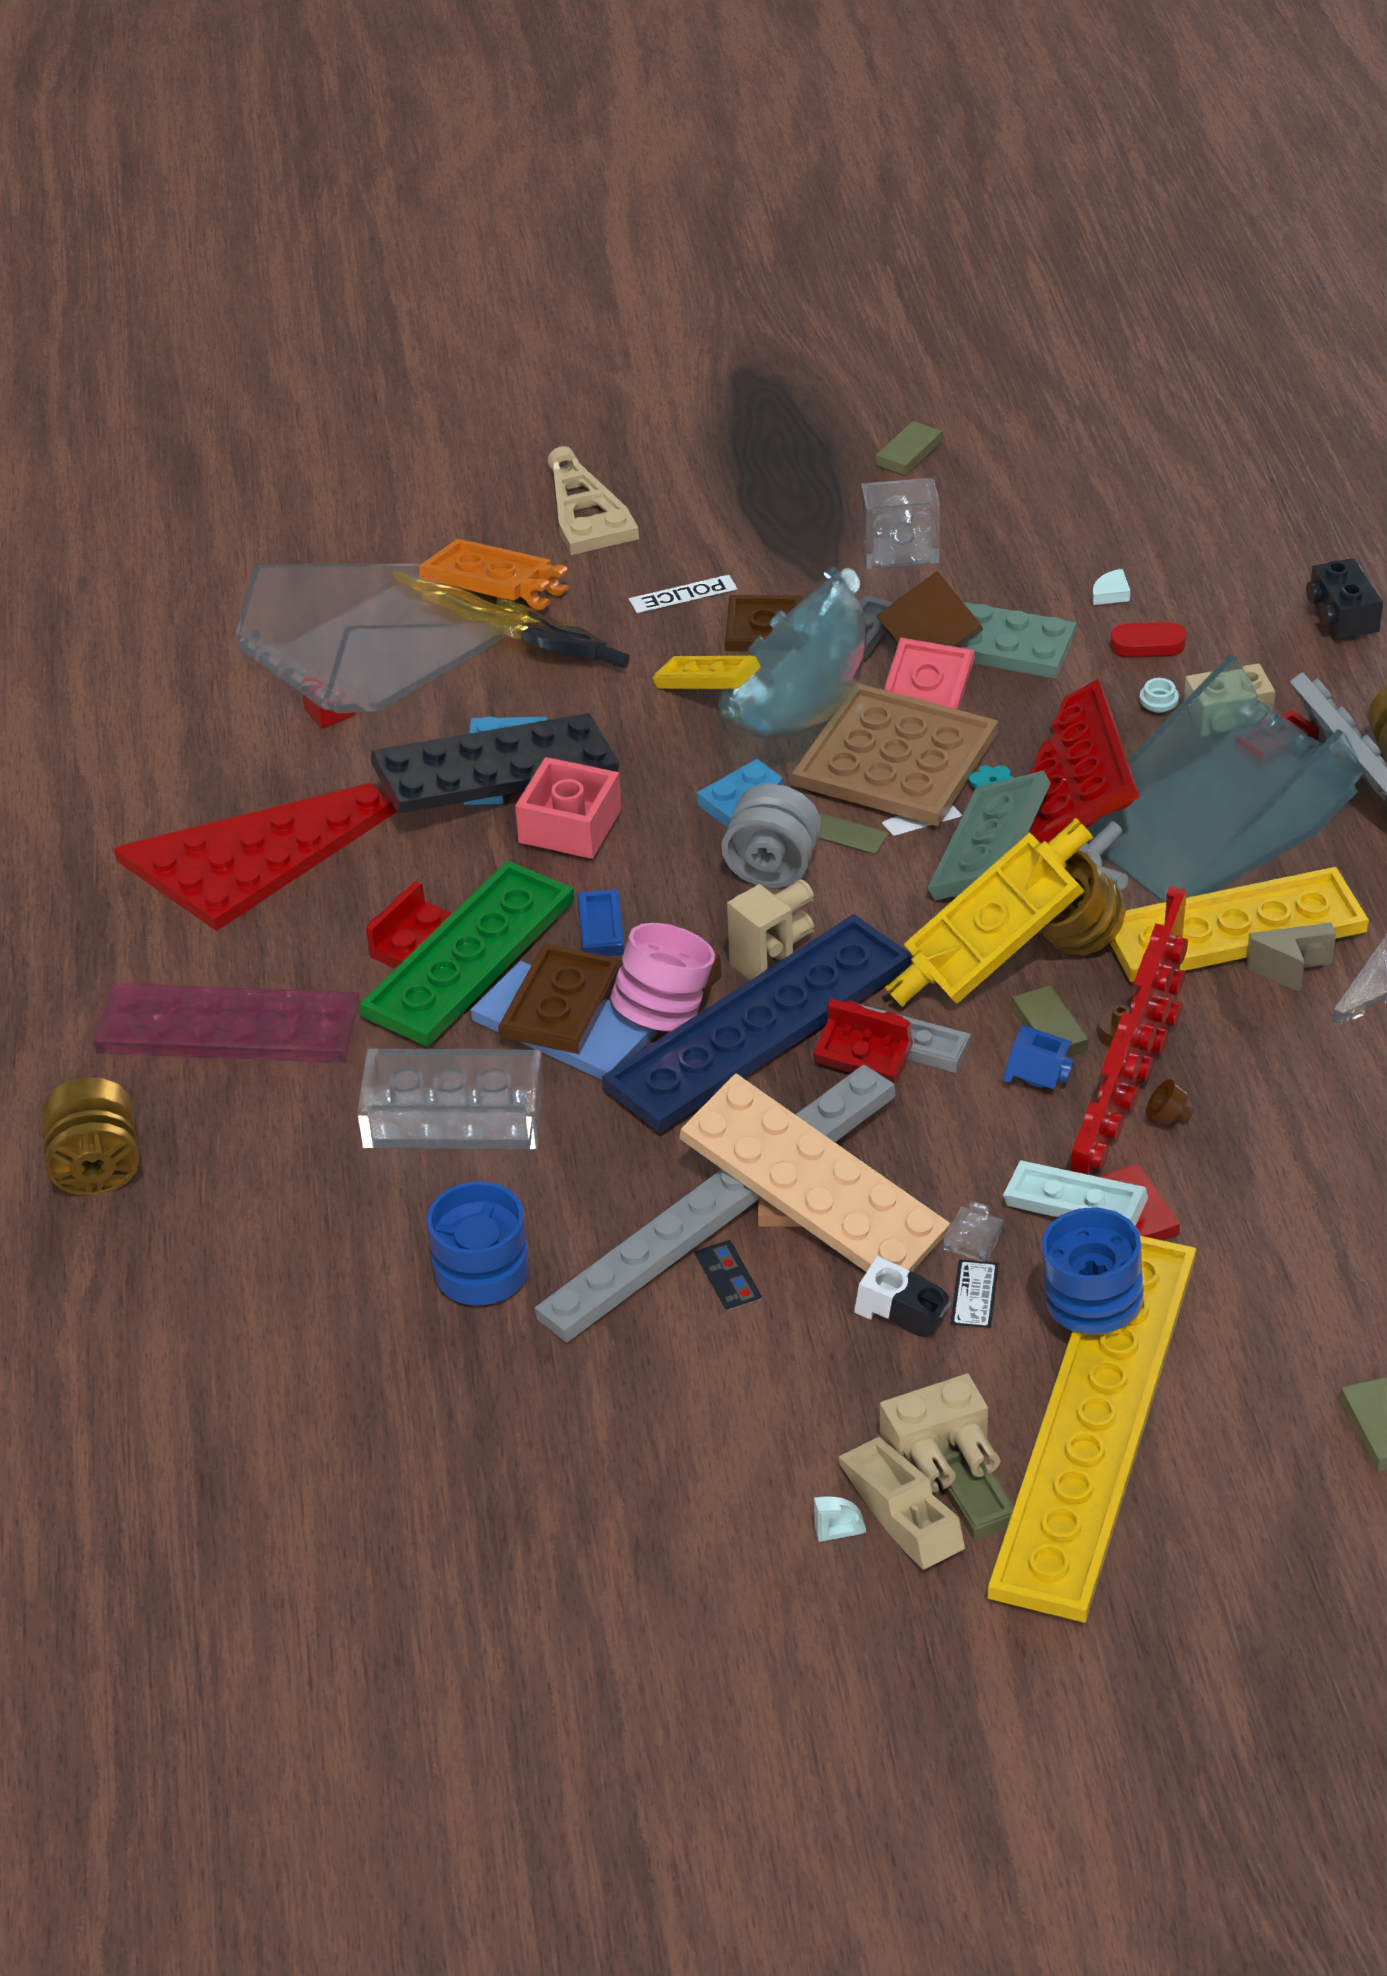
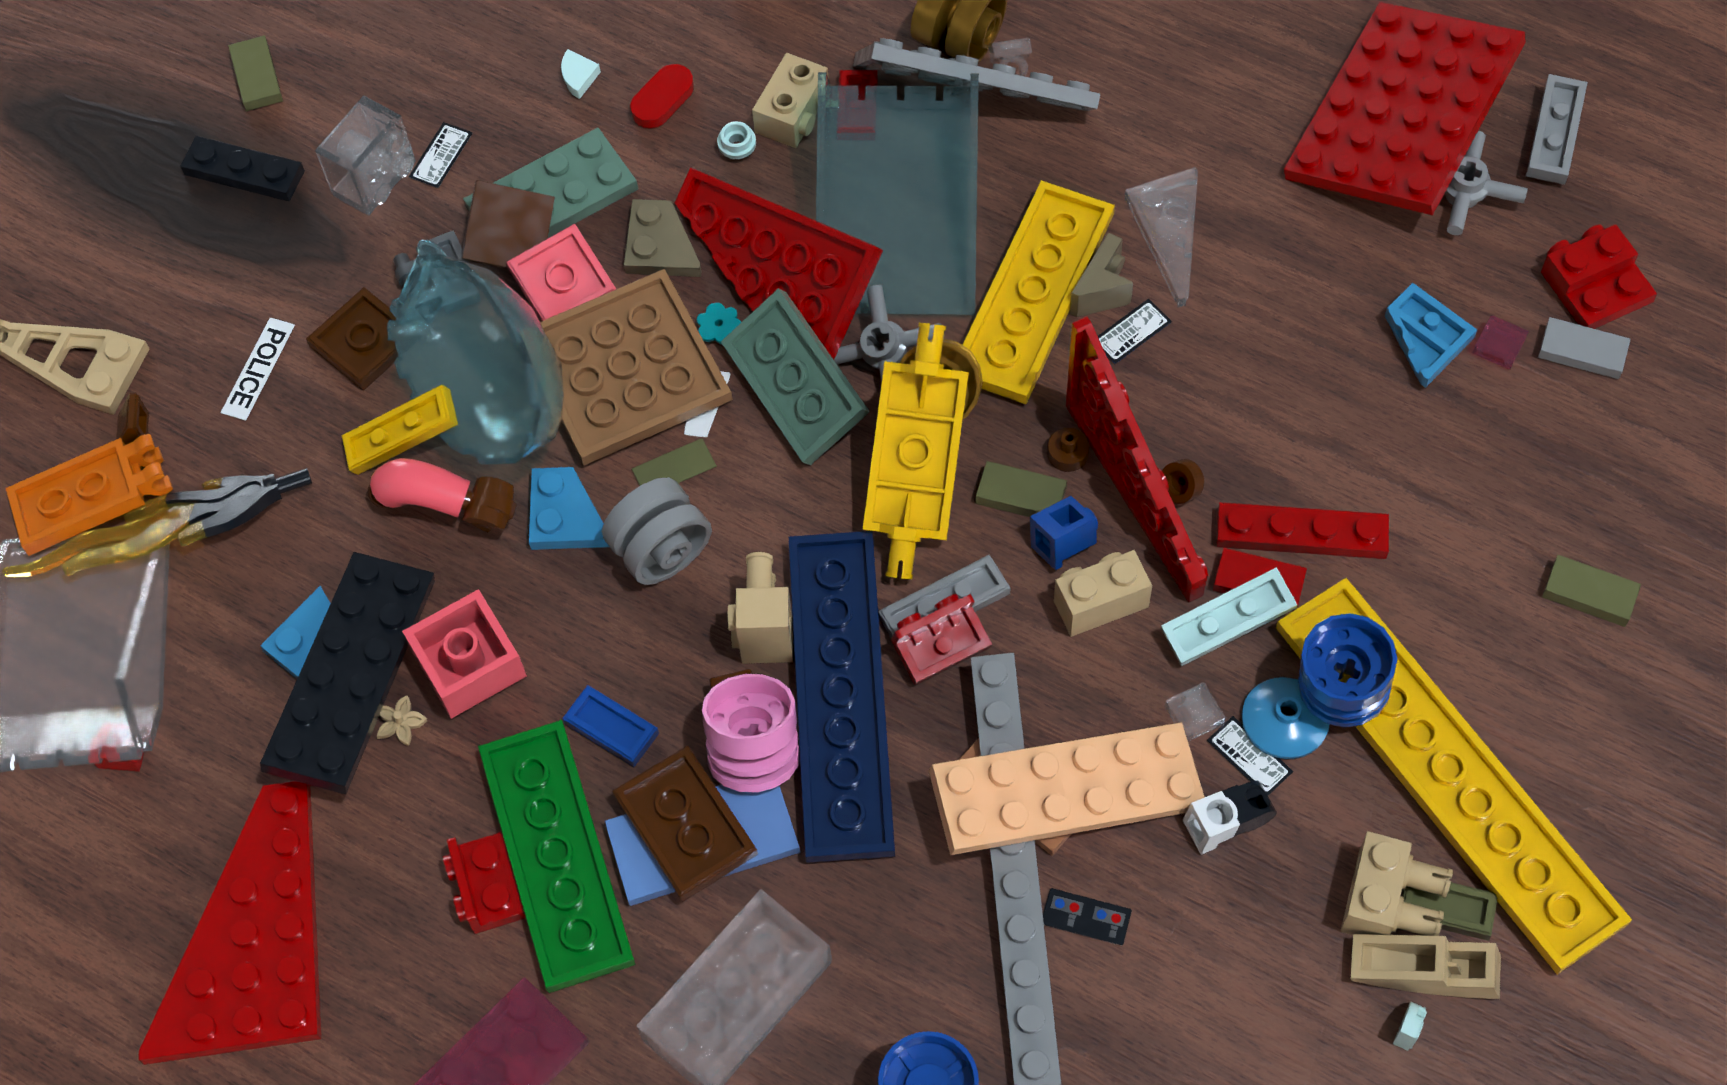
camera: 50 degrees left, 20 degrees up
(490, 819) = (400, 721): none -> tan plant
(574, 557) = (132, 419): none -> reddish brown slope
(672, 702) = (432, 487): none -> coral piece
(826, 489) = (242, 168): none -> black plate
(962, 569) = (440, 155): none -> sticker
(1009, 1111) = (1102, 592): none -> tan brick
(1019, 1296) = (1272, 730): none -> dark azure dish
(1023, 710) = (658, 241): none -> dark tan wing
(1216, 1208) = (1303, 530): none -> red plate
(1275, 1006) = (1132, 330): none -> sticker

